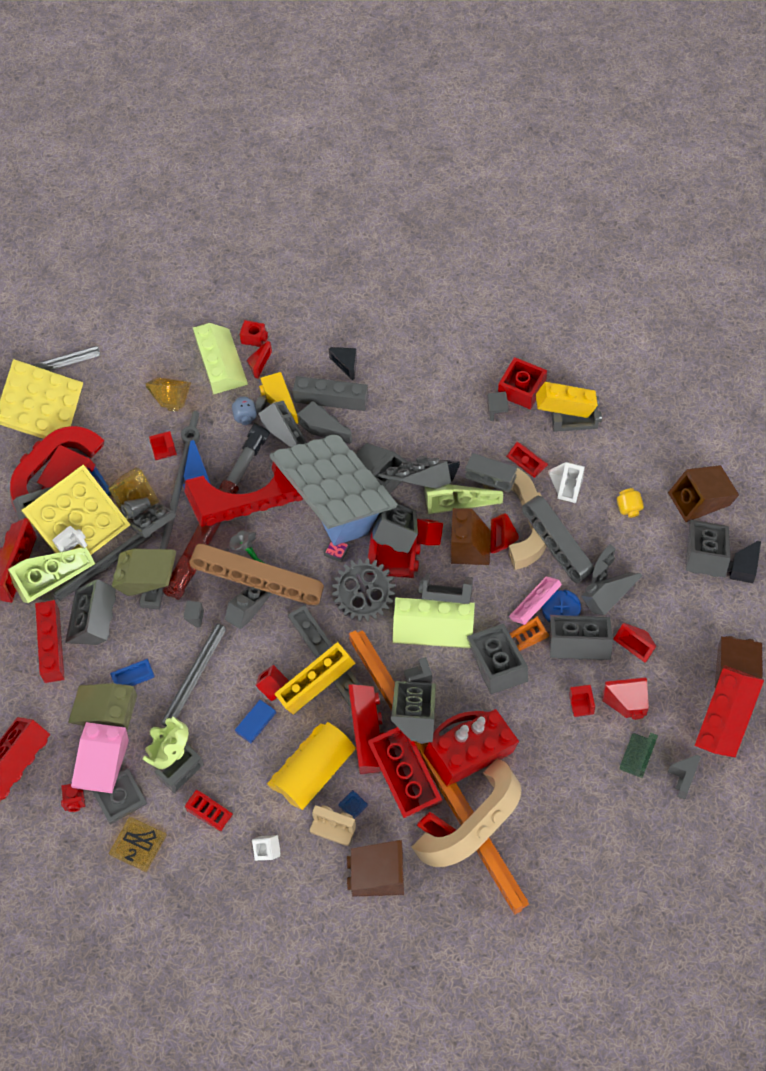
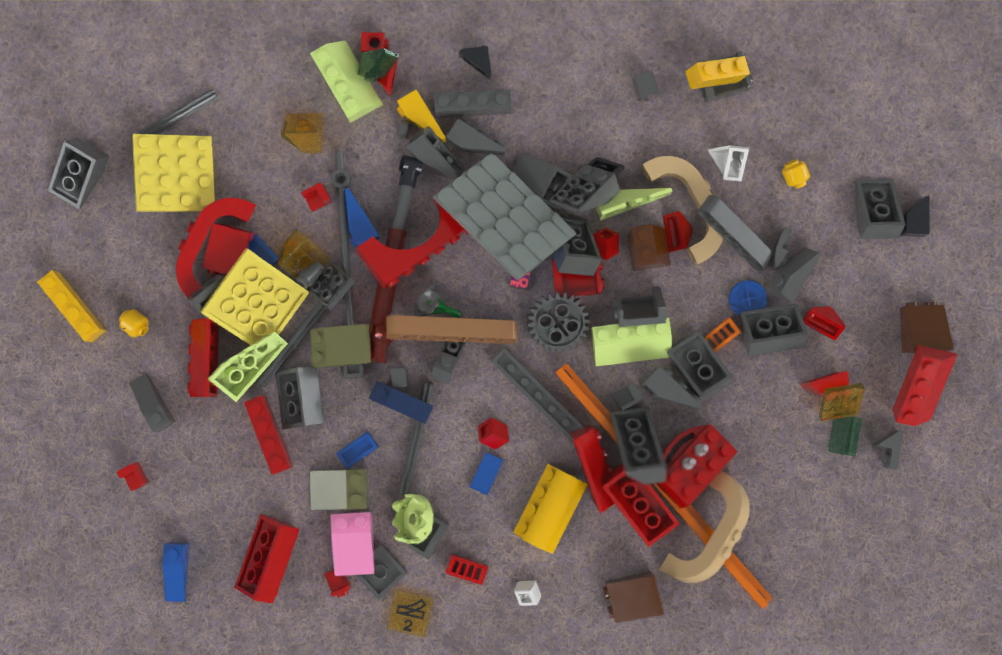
camera: 15 degrees left, 25 degrees up
(69, 539) = (256, 328): white bracket -> none
(187, 633) = (401, 402): none -> dark blue slope
(244, 410) = (388, 140): sand blue head -> none
(251, 346) = (376, 63): none -> clear green slope
(315, 678) = (535, 427): yellow brick -> none
(333, 825) = (582, 563): tan bracket -> none
(353, 804) = (595, 536): clear blue tile -> none
(435, 826) = (680, 546): red slope -> none
(460, 671) = (664, 387): none -> dark grey slope
(491, 472) = (658, 172): dark grey piece -> none
(522, 382) = (666, 55): red brick -> none
(526, 459) = (685, 141): red slope -> none
(535, 600) = (723, 297): bright pink tile -> none
(582, 700) = (785, 393): red panel -> none
(638, 715) = (841, 401): none -> clear yellow tile
(702, 492) = (865, 149): reddish brown slope -> none

